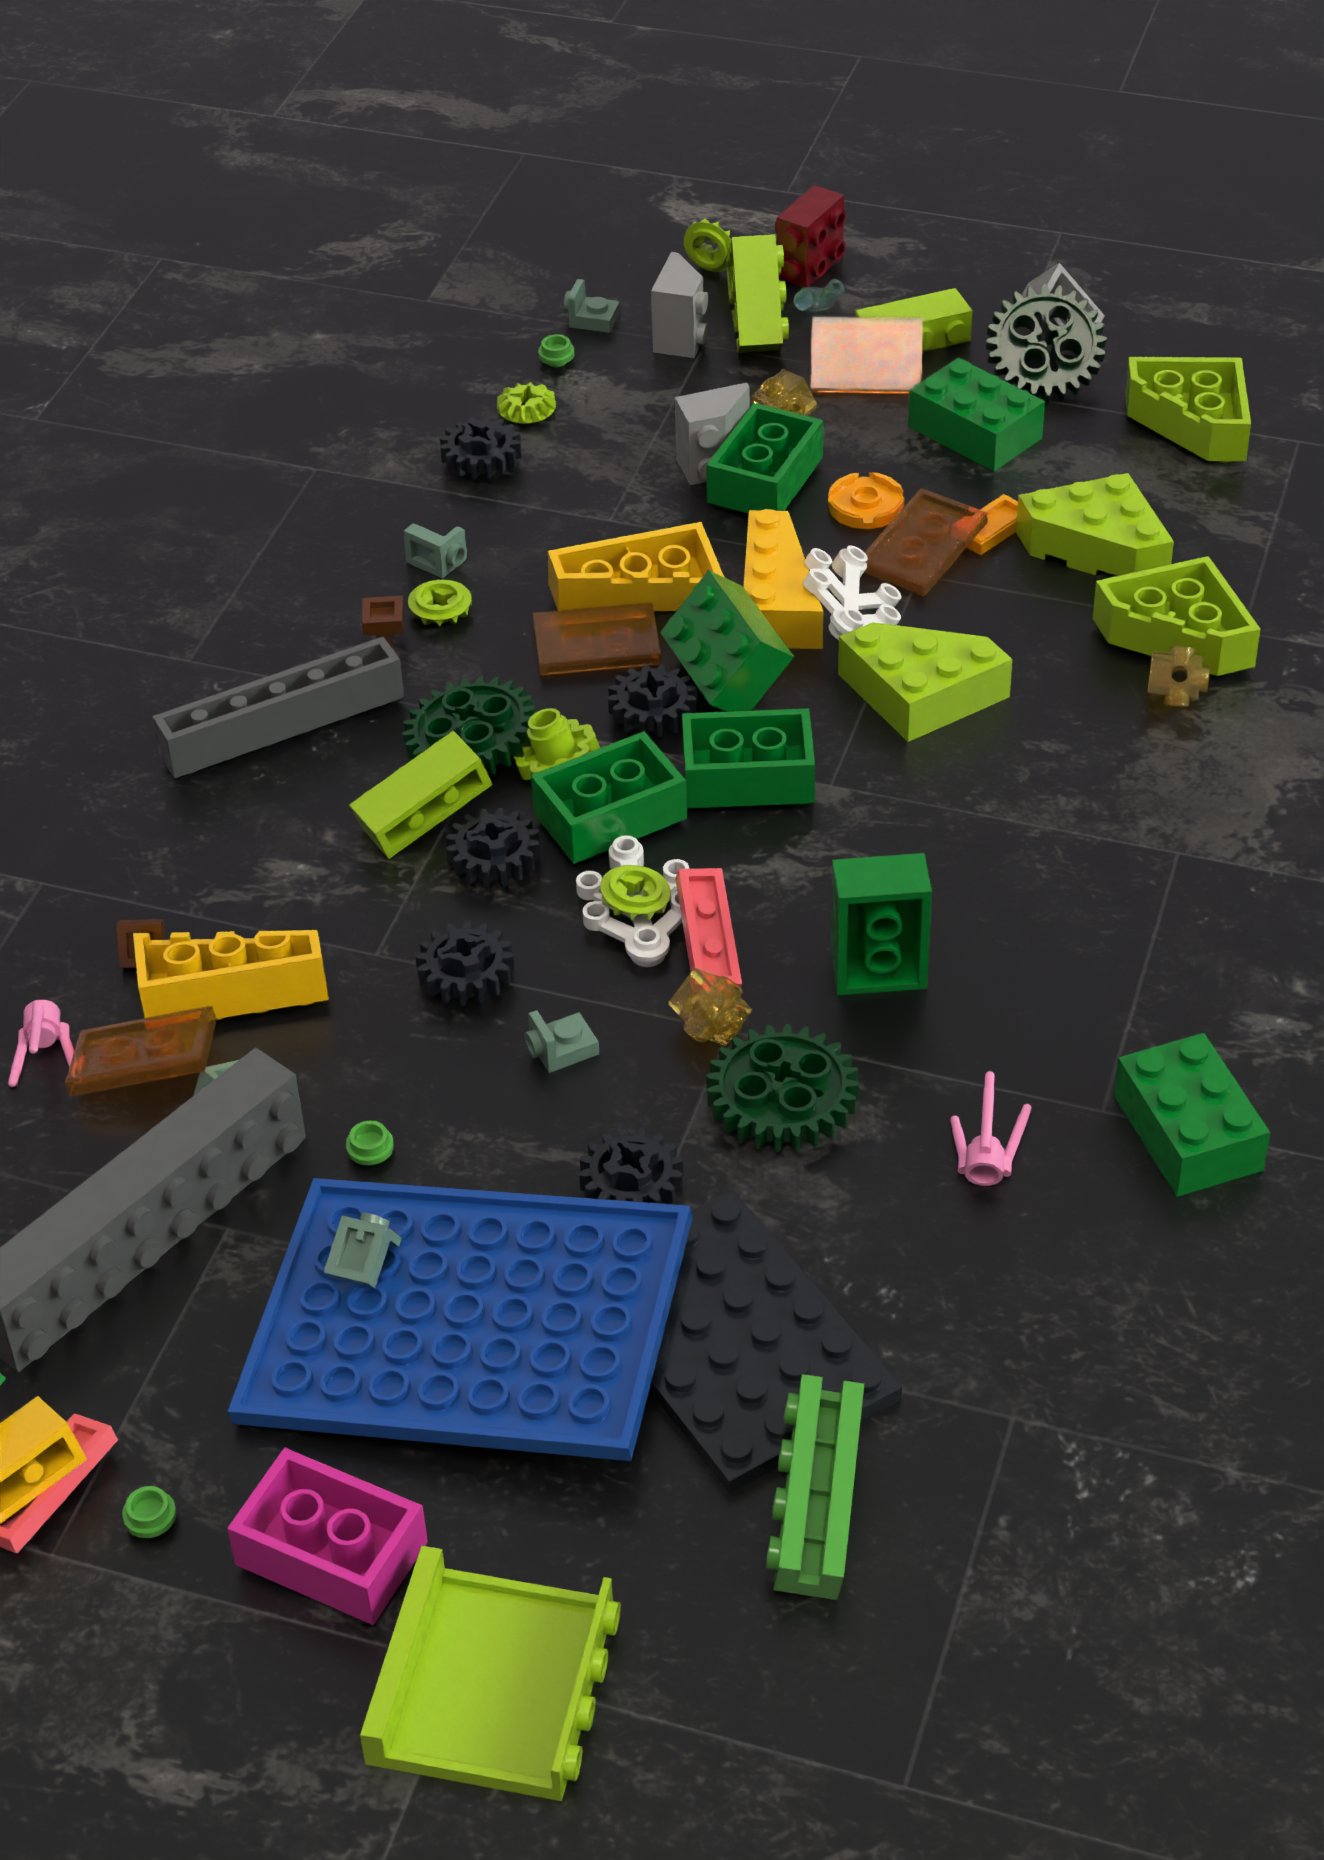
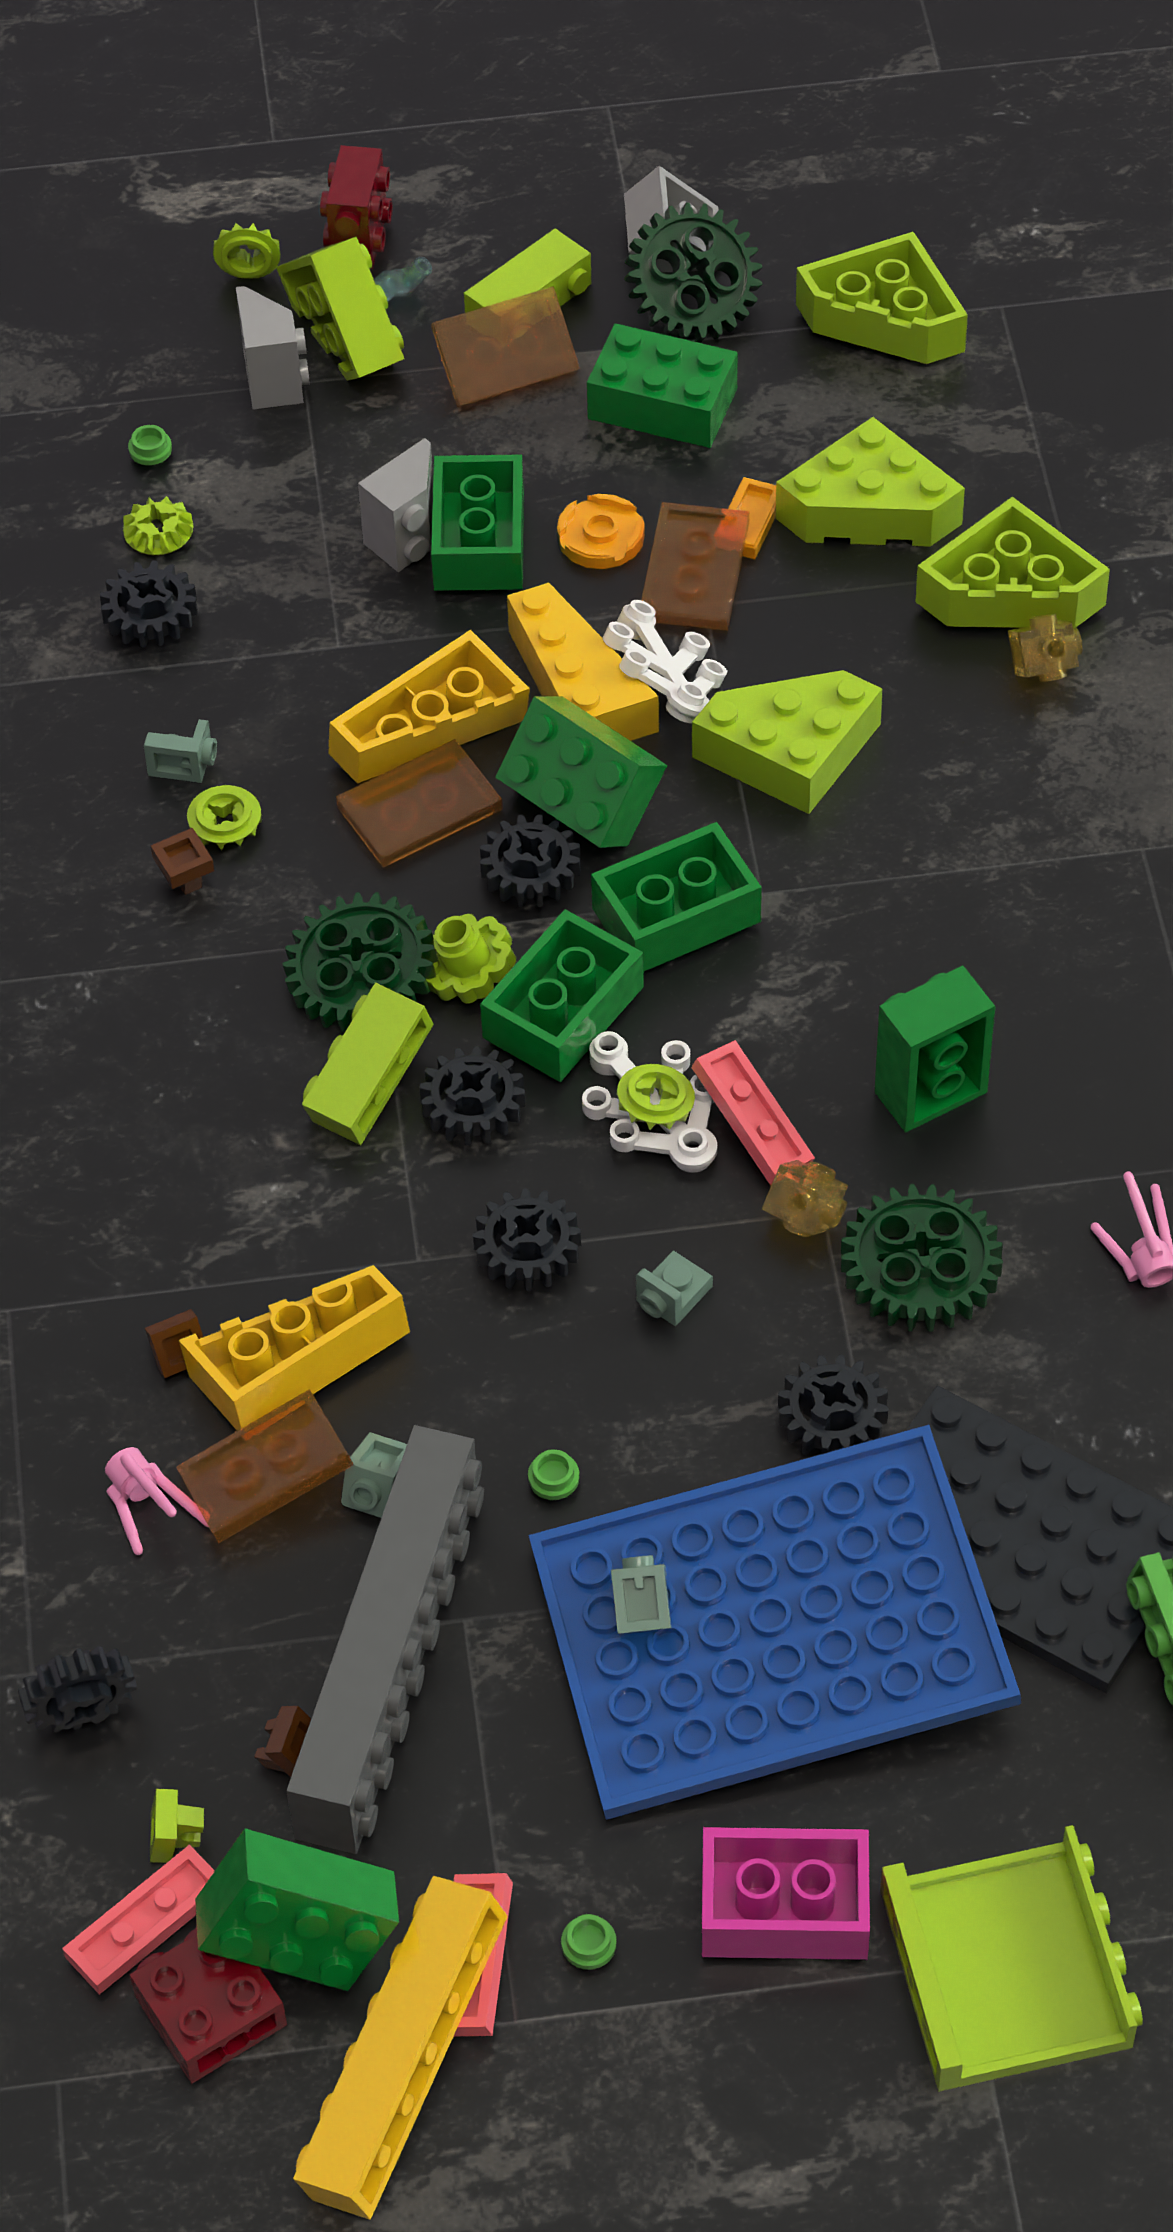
camera: 25 degrees left, 10 degrees up
(278, 707) = (144, 1012): dark grey brick -> none
(590, 312) = (155, 379): sand green bracket -> none
(787, 393) = (453, 430): clear yellow brick -> none

